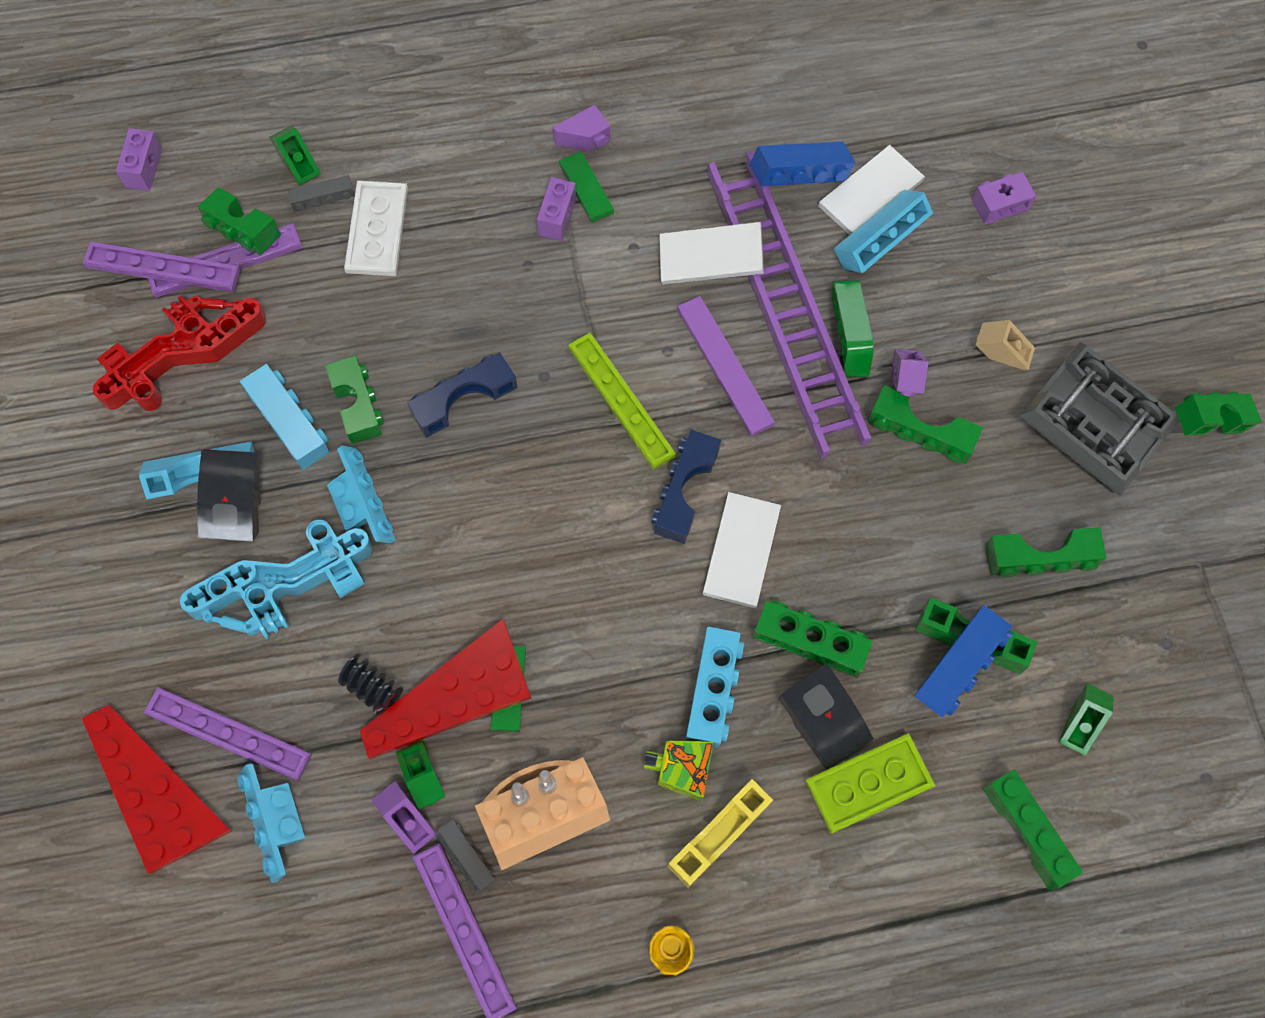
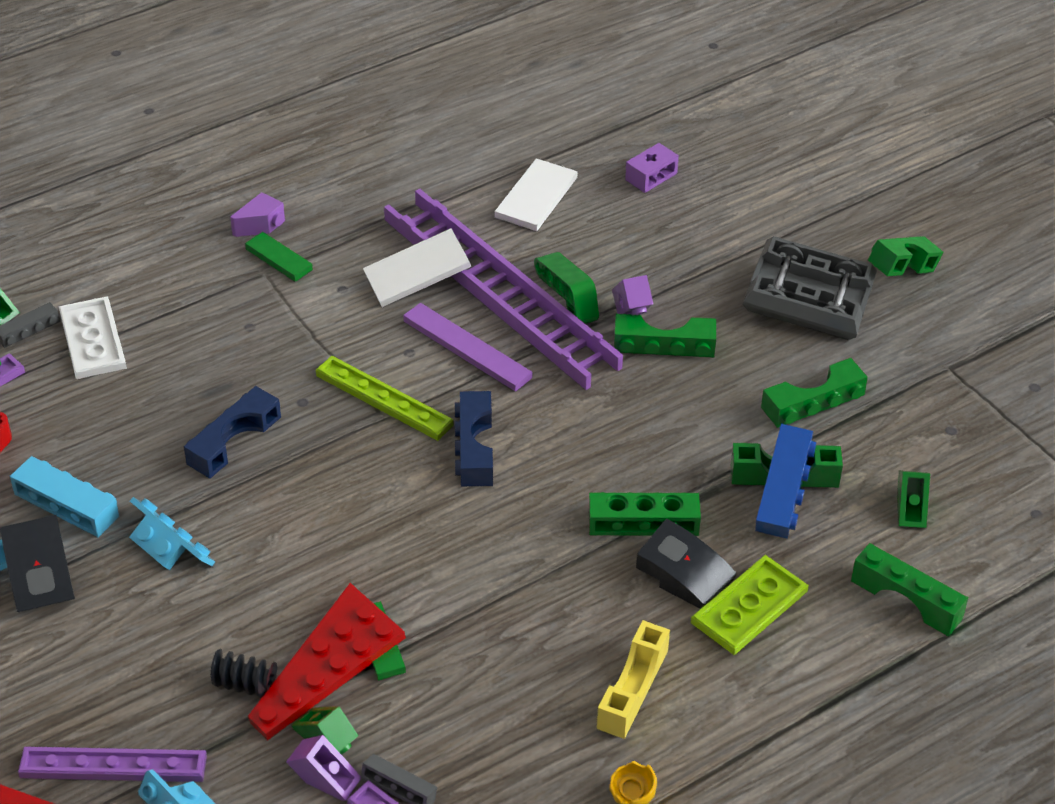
camera: 20 degrees left, 25 degrees down
(276, 580) = (103, 628): medium azure beam -> none
(349, 380) = (140, 475): arch -> none
(542, 811) = (457, 712): light nougat piece -> none
(556, 209) = (259, 275): medium lavender brick -> none
(682, 766) = (574, 644): torso -> none
(716, 643) = (573, 577): medium azure brick -> none
(742, 550) = (548, 472): white tile -> none
(802, 163) = (467, 183): blue brick -> none
(883, 231) = (560, 214): medium azure brick -> none
(1005, 344) = (704, 262): tan slope -> none

